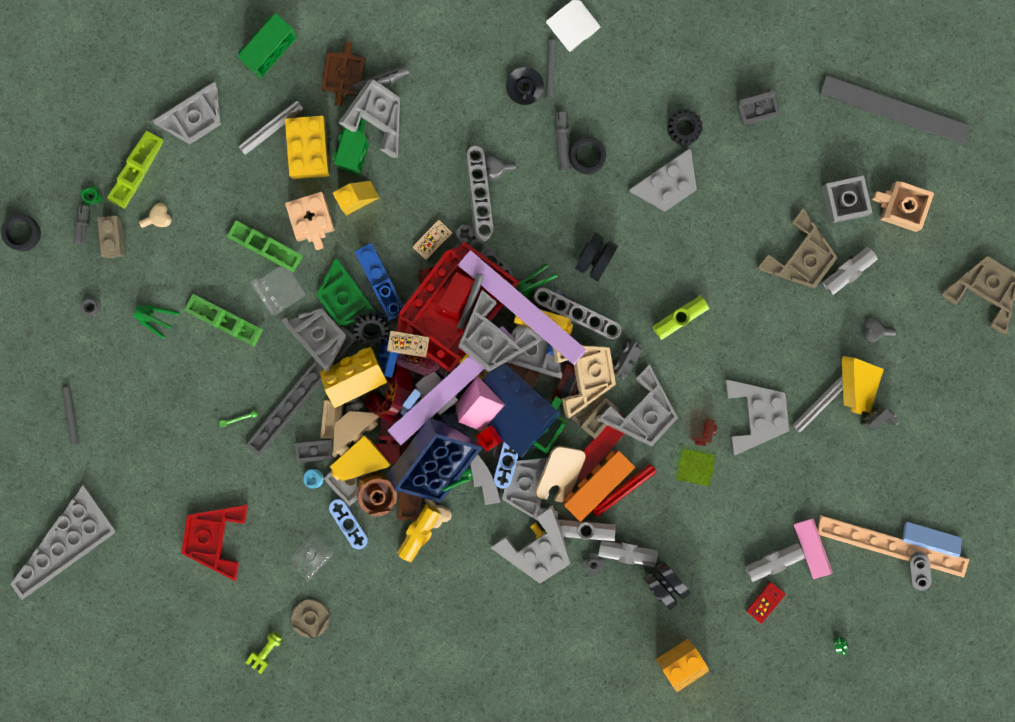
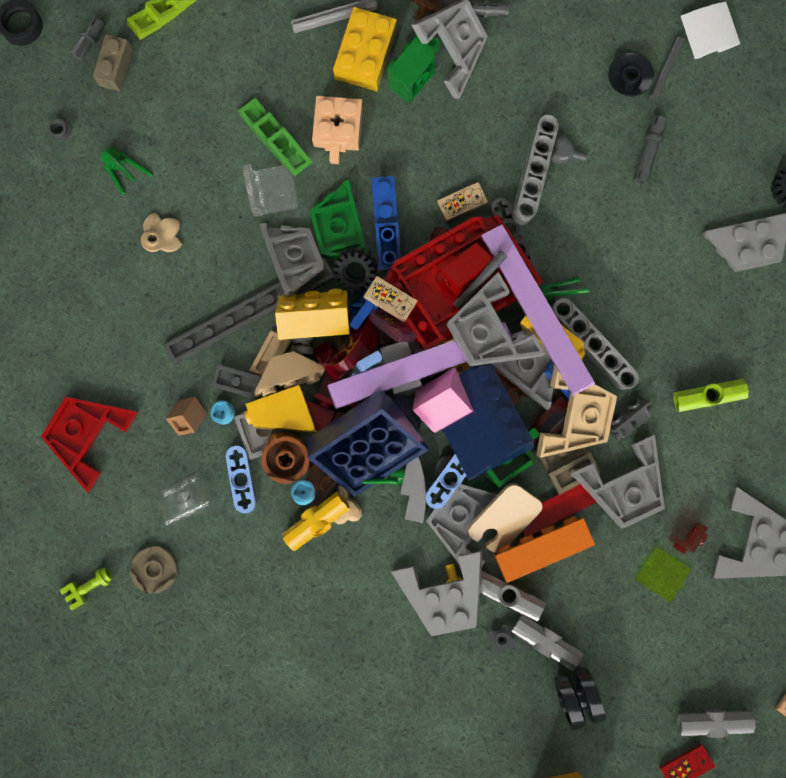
camera: 30 degrees right, 5 degrees down
(85, 193) = (109, 7): green plate -> none
(157, 216) = (172, 62): tan rock -> none
(206, 355) = (163, 231): none -> tan plate
(223, 320) = (197, 199): bright green slope -> none
(223, 423) = (150, 312): bright green hinge -> none
(287, 492) = (186, 416): none -> medium nougat panel
(355, 196) = (396, 119): yellow slope -> none
(400, 515) = (303, 492): none -> medium azure tile
(489, 438) = (439, 443): red plate -> none
(588, 141) = (679, 160): black tyre -> none
(595, 256) = (640, 287): black wheel -> none
(624, 489) = (570, 567): red axle -> none
(813, 548) = (768, 725): bright pink tile -> none

